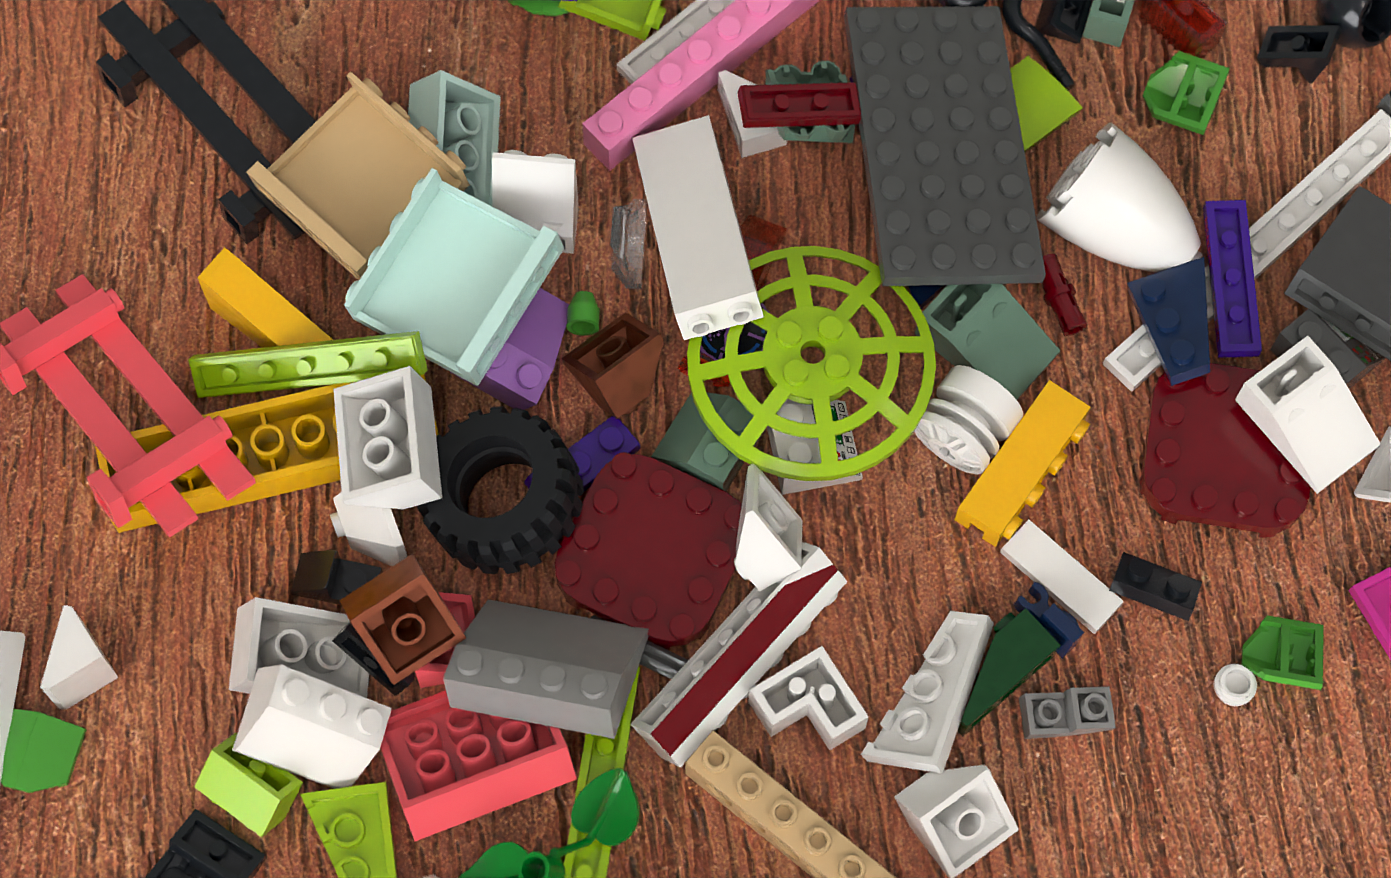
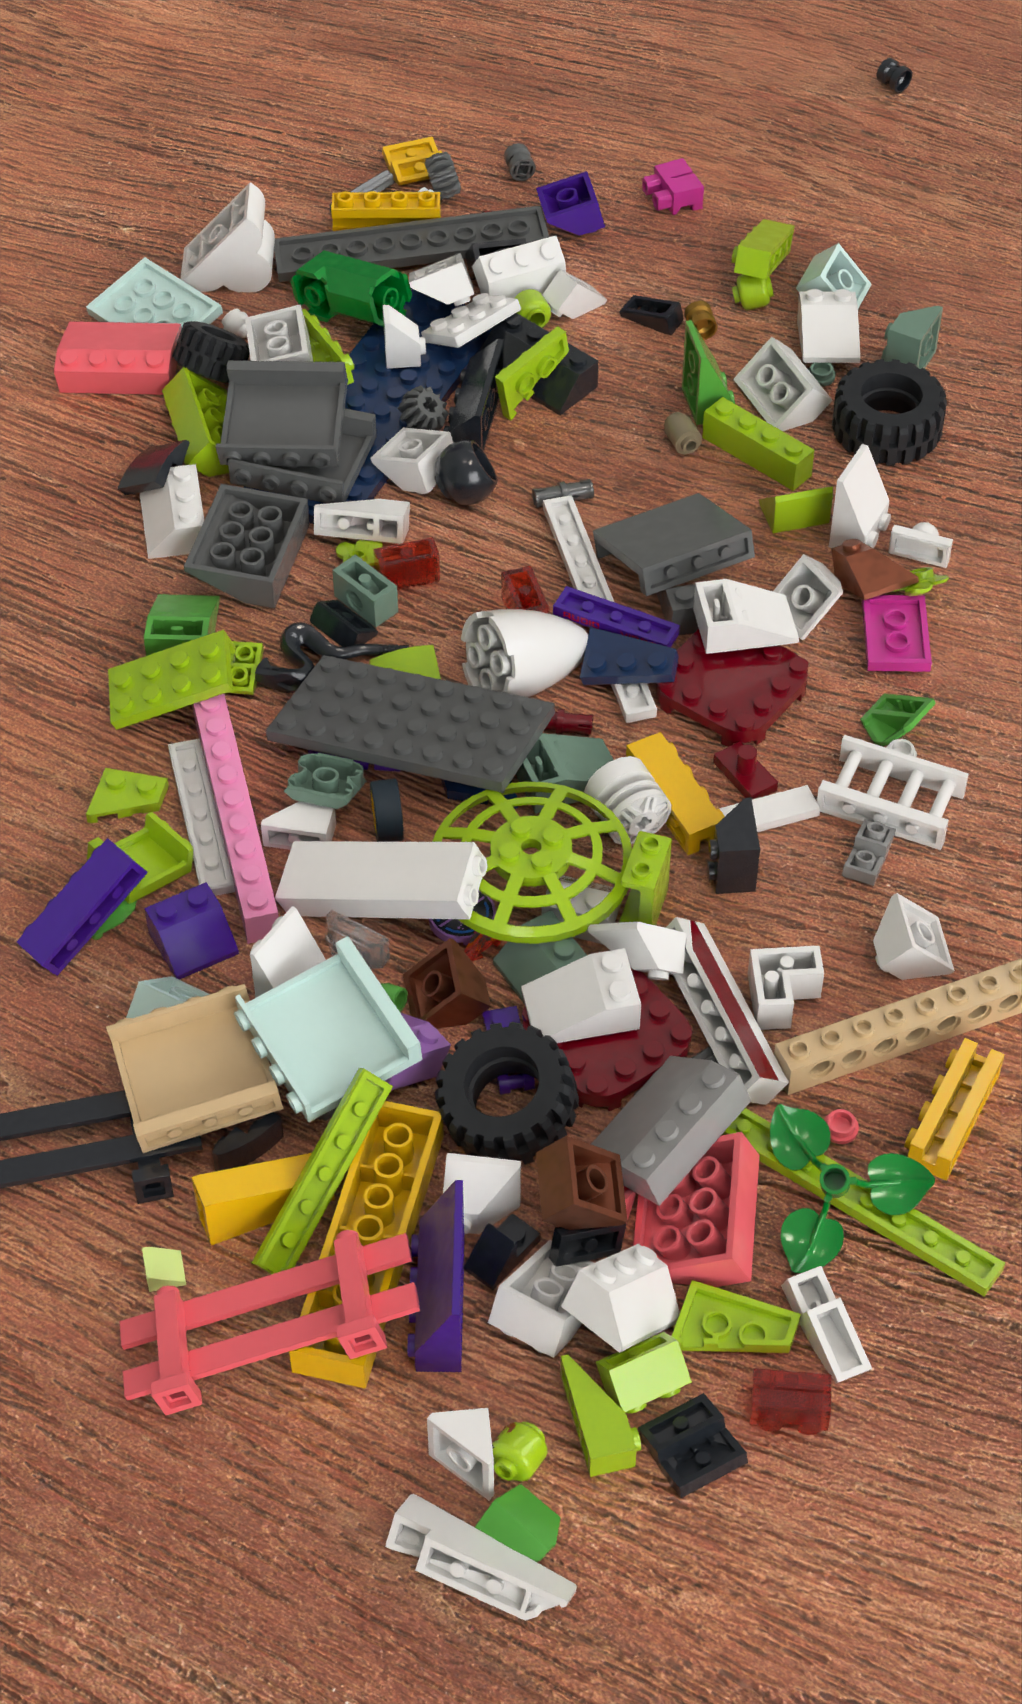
camera: 60 degrees left, 20 degrees down
(109, 708) = (519, 1451): none -> lime head
(155, 278) = (163, 1267): none -> yellowish green slope
(168, 776) = (599, 1422): none -> lime slope
(247, 546) = (439, 1285): none -> dark purple slope
(318, 271) = (241, 1148): none -> black slope
(387, 441) = (433, 1128): white slope -> none
(556, 83) = (191, 931): none -> dark purple slope
(656, 507) = (585, 998): none -> white slope
(664, 847) = (842, 1126): none -> coral plate
(799, 104) = (327, 781): dark red tile -> none
(812, 183) = (386, 810): none -> black wheel
(854, 494) = (647, 877): none -> lime panel
(934, 699) = (819, 916): white wing -> none
(965, 565) = (735, 851): none -> black slope
(1013, 657) = (818, 868): dark green slope -> none
(1057, 622) = (804, 828): dark blue plate -> none
(1107, 525) = (744, 770): none -> dark red tile
(1133, 723) = (909, 823): none -> white fence
(1155, 586) = (806, 763): black plate -> none
(1185, 91) = (459, 588): bright green slope -> none
(1206, 165) = (522, 590): none -> clear red brick
(1301, 47) = (475, 511): black slope -> none

